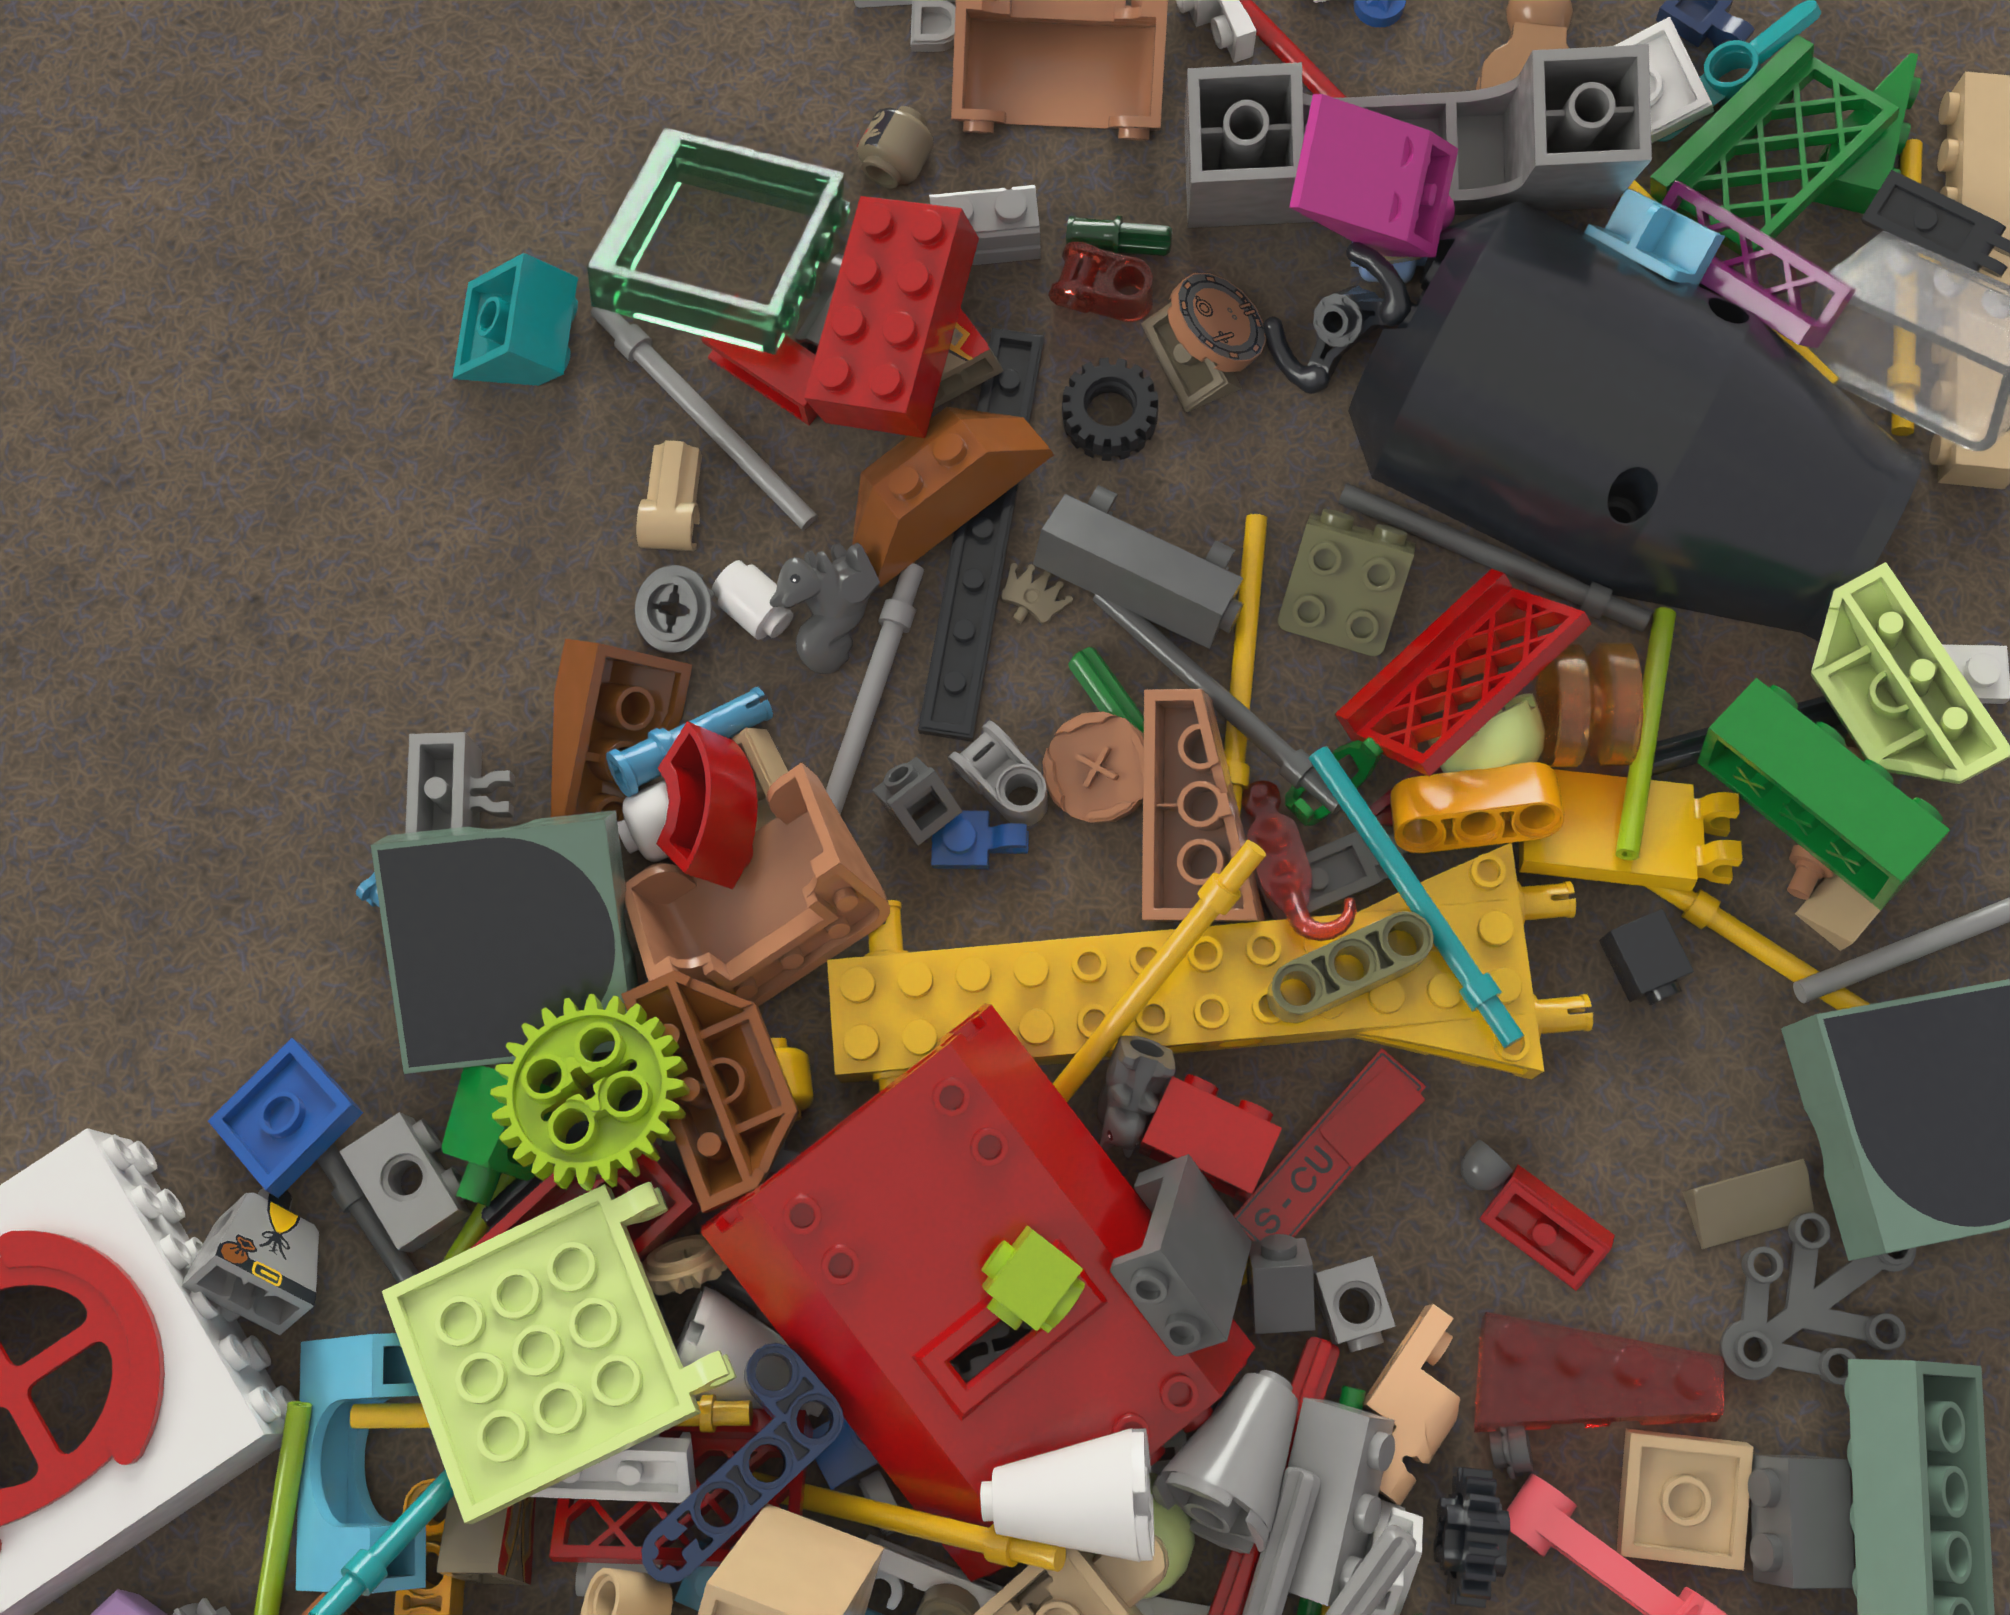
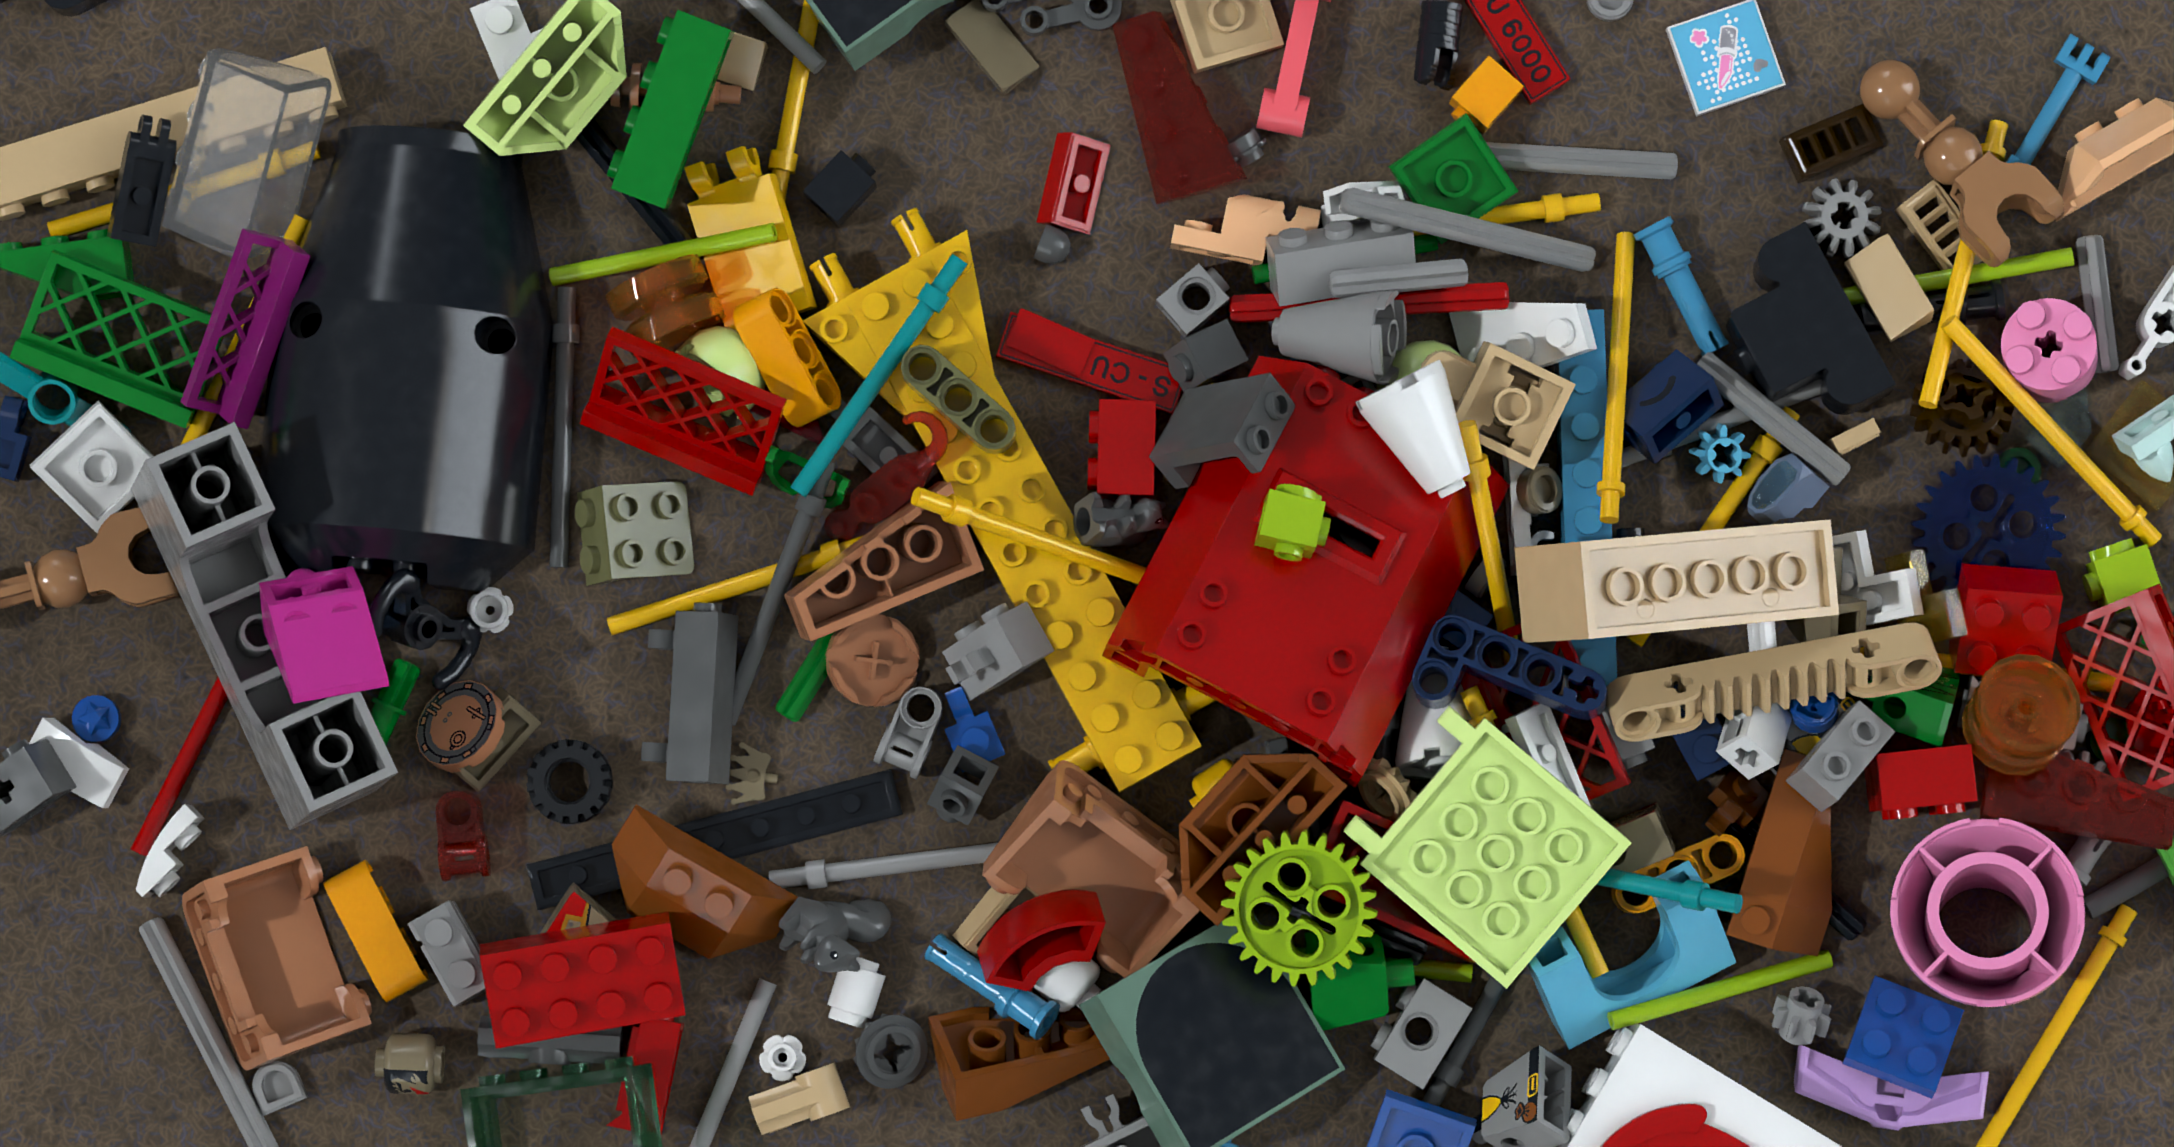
camera: 120 degrees left, 10 degrees up
(726, 516) = (795, 1058): none -> white plate
(1048, 895) = (996, 650): none -> light grey brick
(1054, 161) = (374, 931): none -> light orange beam
(1120, 236) = (412, 841): dark green axle -> none
(1269, 269) = (394, 697): none -> green axle
(1331, 393) = (490, 597): none -> white plate
(1471, 1537) = (1320, 152): black gear -> none
(1659, 238) = (259, 398): medium azure panel -> none

